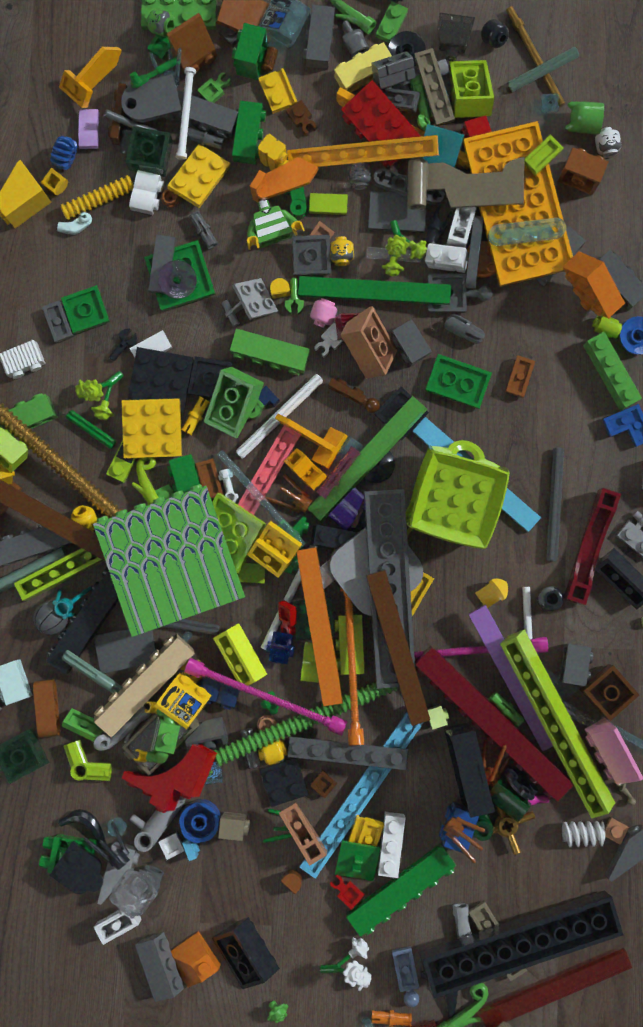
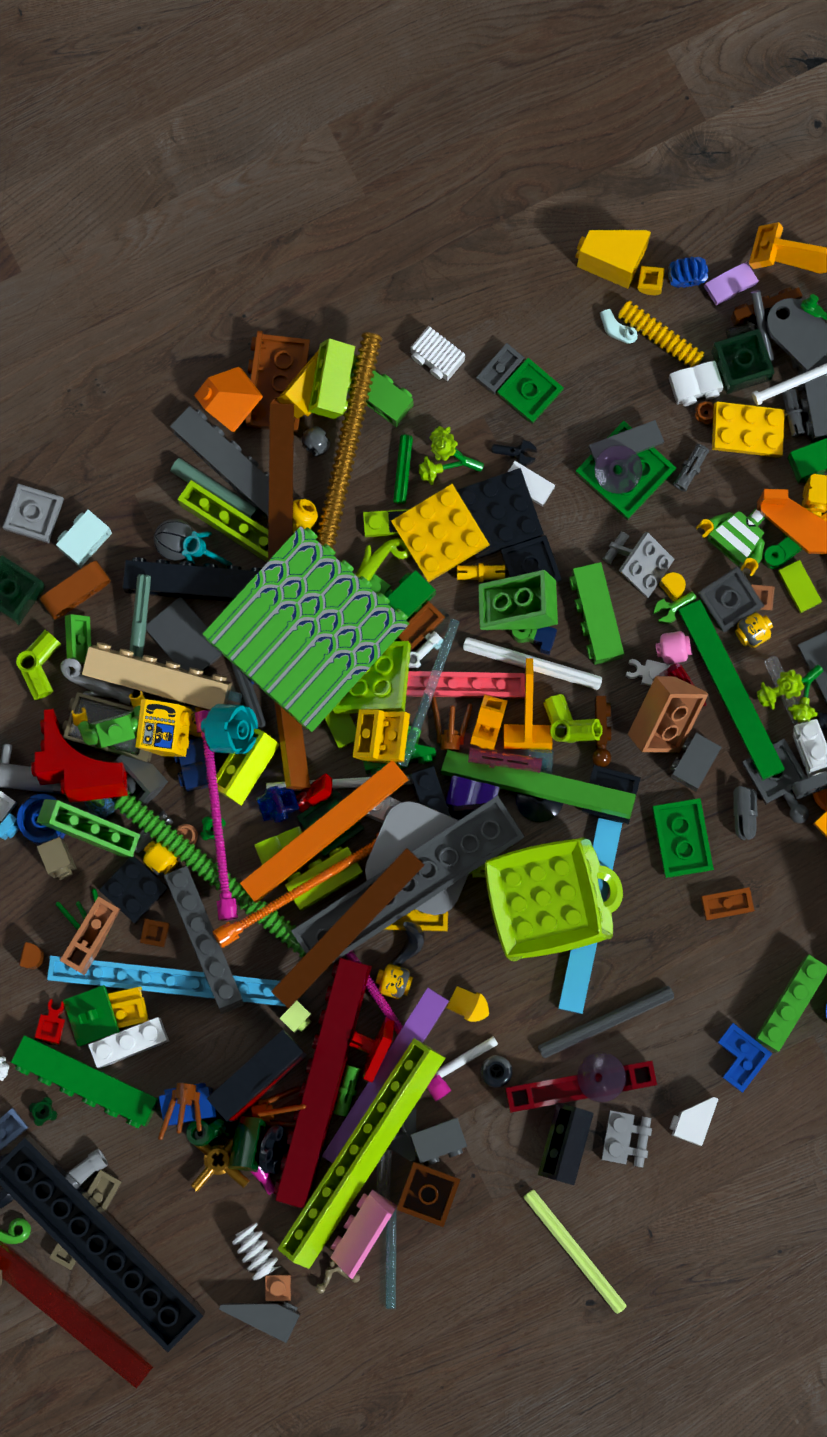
camera: 55 degrees right, 5 degrees down
(35, 479) = (316, 440): none -> dark grey piece
(210, 653) = (230, 728): none -> teal brick
(224, 793) = (88, 828): none -> bright green brick
(249, 617) = (292, 750): none -> dark orange tile
(329, 417) = (576, 729): none -> lime piece
(409, 935) = (36, 1108): none -> dark green plate
(430, 608) = (412, 945): none -> black piece
(449, 634) = (394, 981): none -> yellow head
(491, 674) = (375, 1048): none -> red tile
(590, 520) = (612, 1077): none -> clear purple dish

